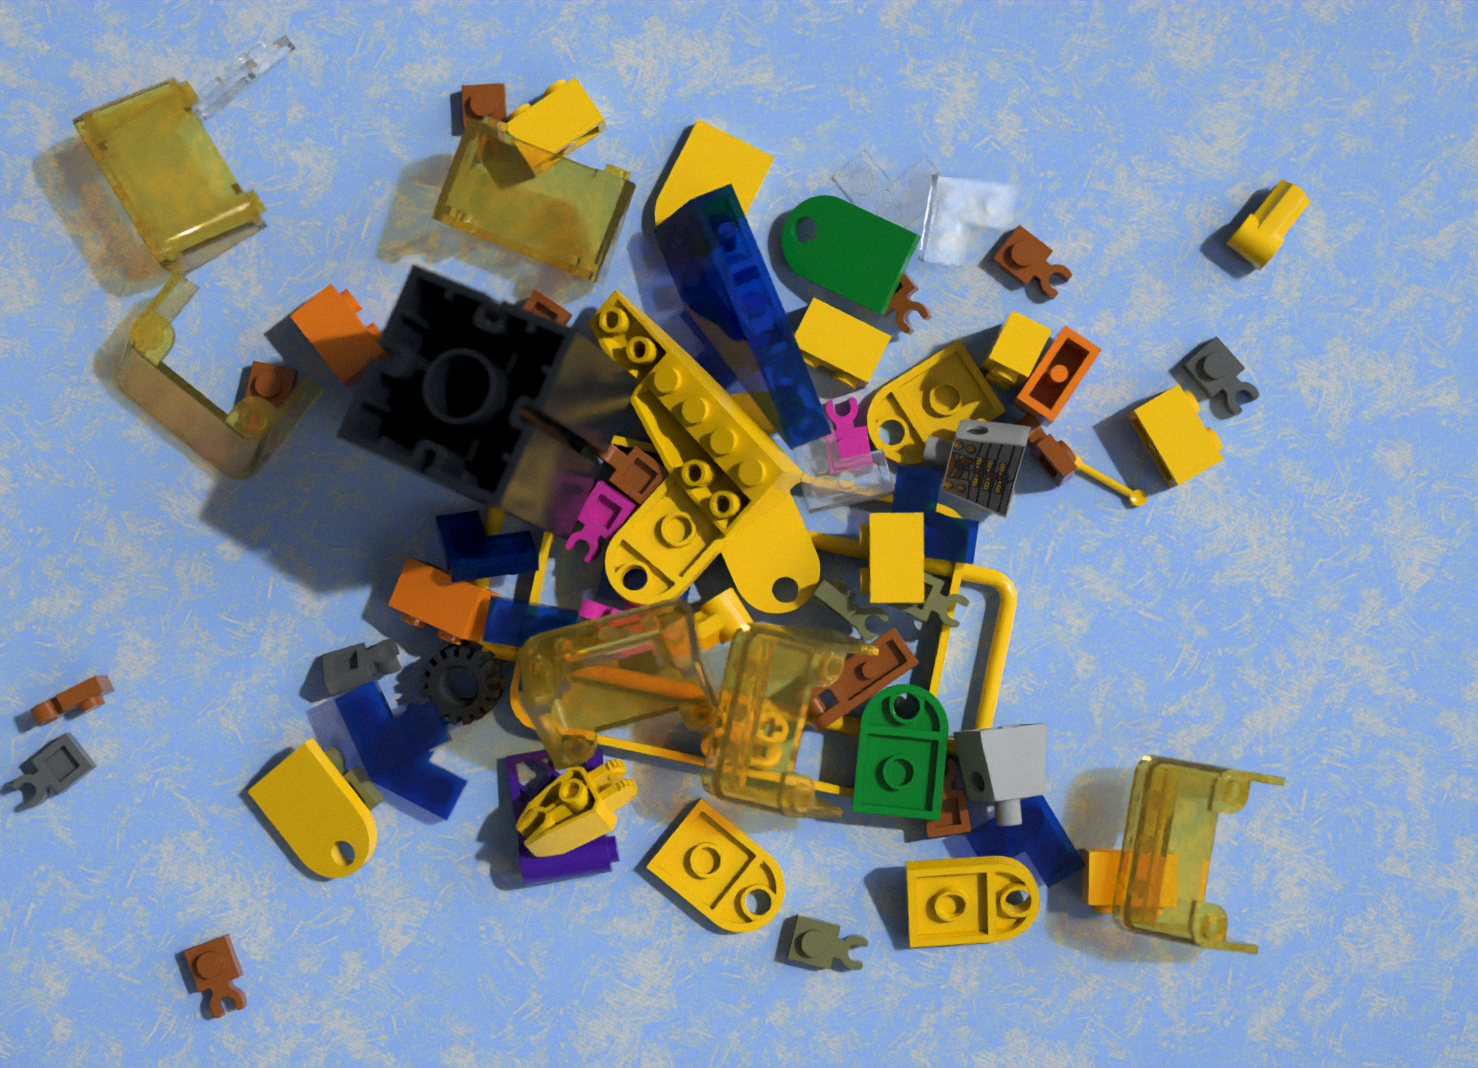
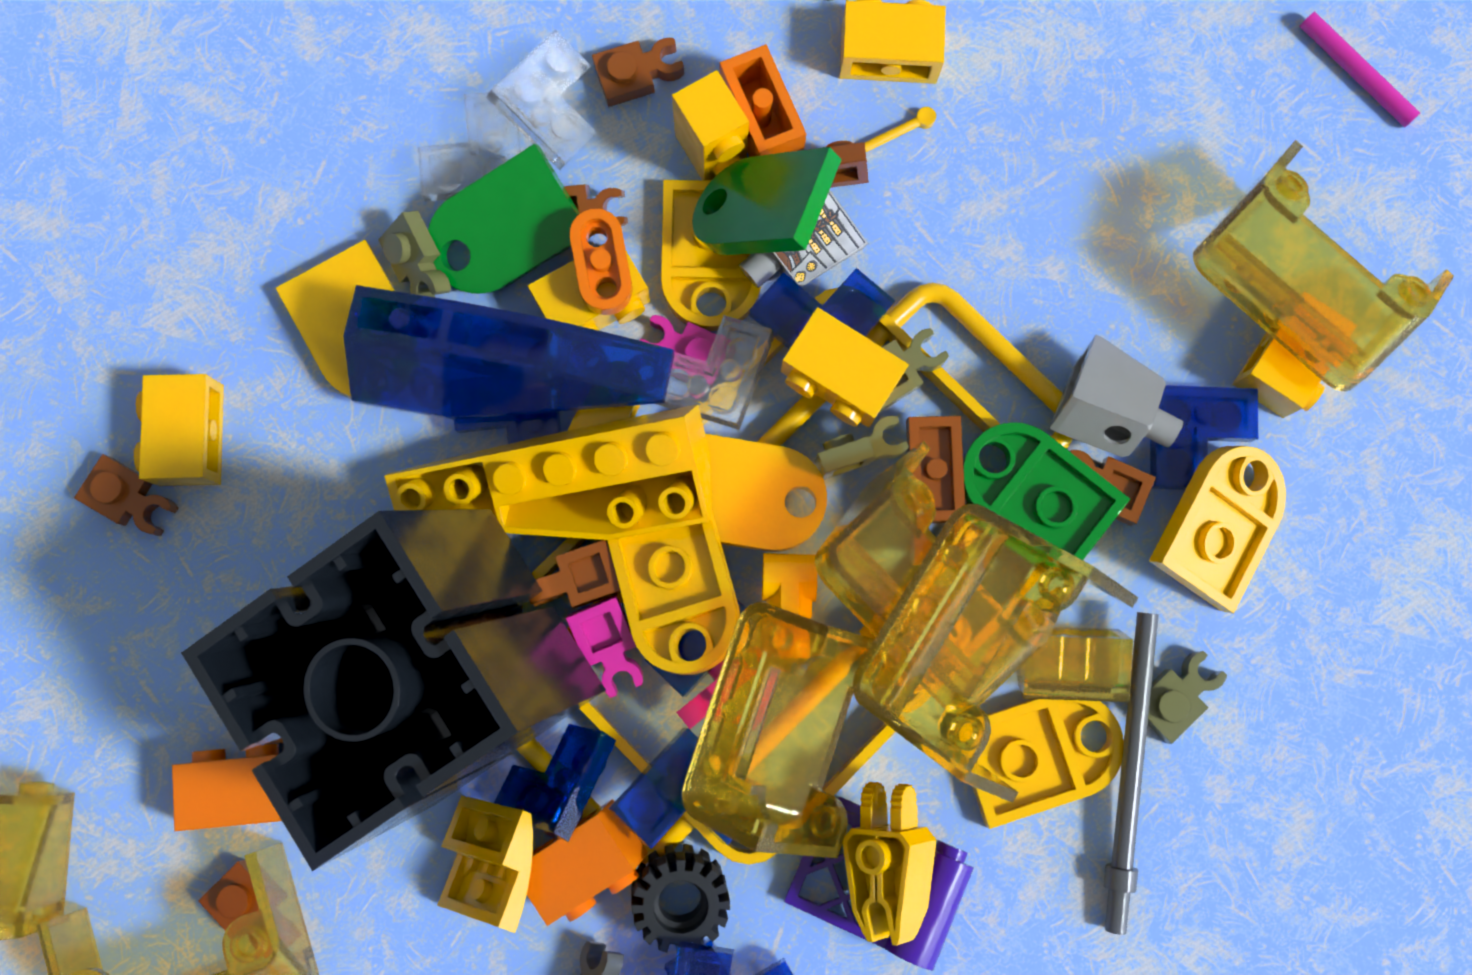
camera: 65 degrees left, 5 degrees down
(403, 539) = (490, 863): none -> yellow slope
(535, 200) = (235, 497): clear yellow windscreen -> none
(674, 978) = (1120, 874): none -> dark grey bar
(752, 745) = (954, 625): none -> clear yellow windscreen
(783, 199) = (412, 255): none -> olive plate
(799, 857) = (1079, 666): none -> clear yellow brick
(861, 339) = (601, 263): none -> orange plate
(981, 429) = (765, 202): none -> green tile
(1392, 797) = (1359, 69): none -> dark pink bar

